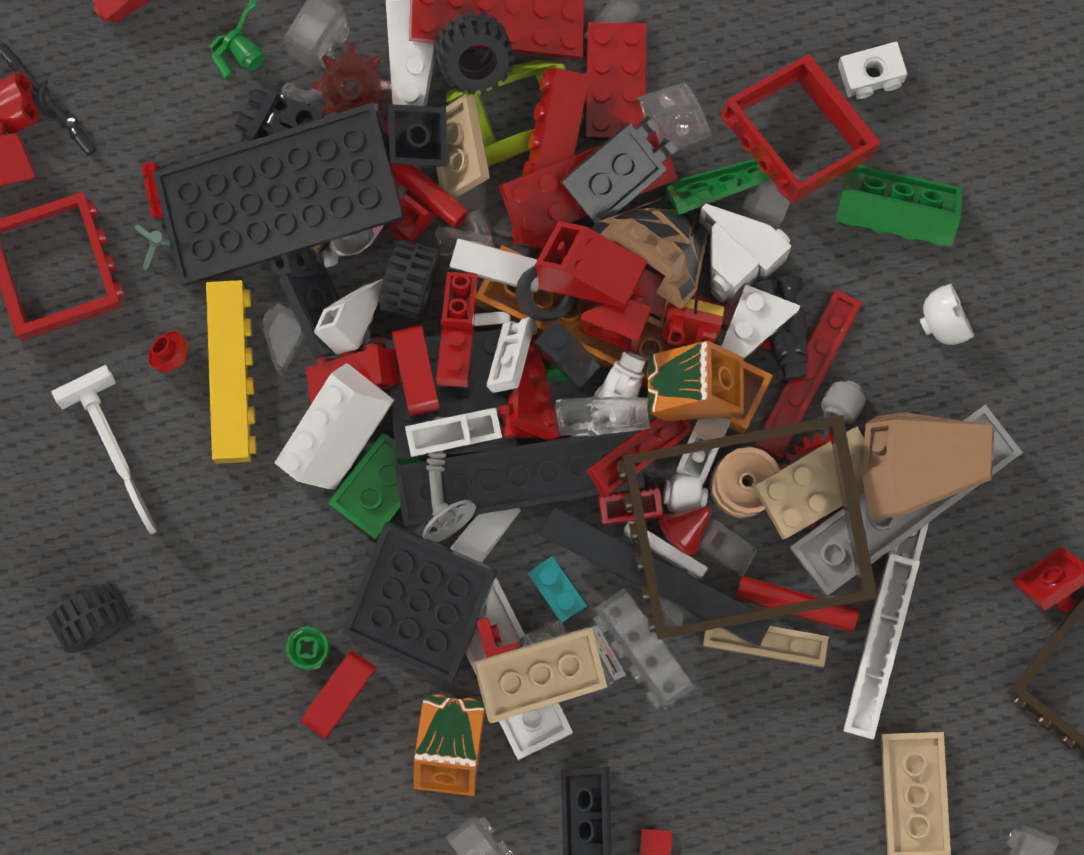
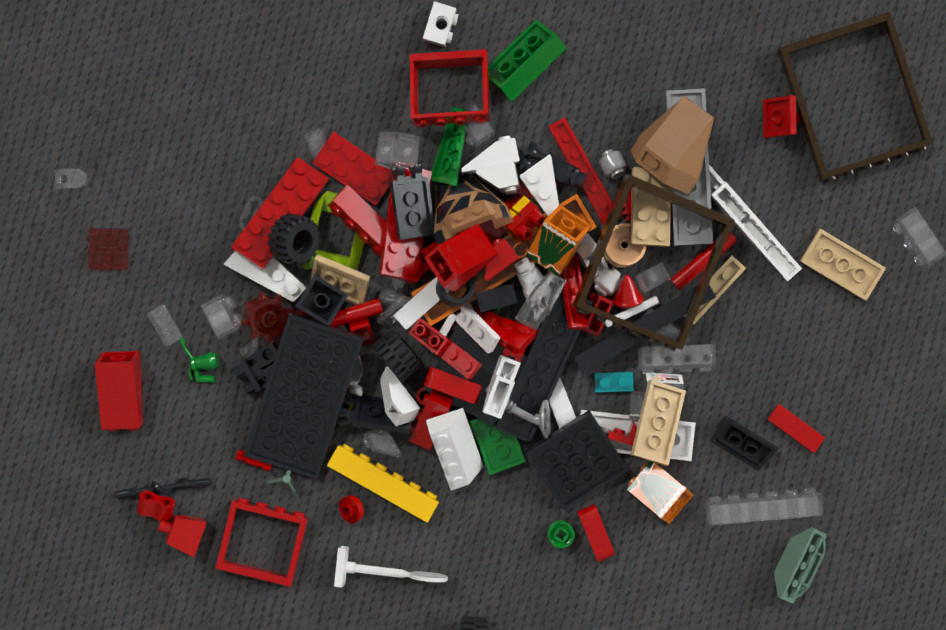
camera: 55 degrees left, 10 degrees up
(946, 317) = (603, 78): white cylinder -> none

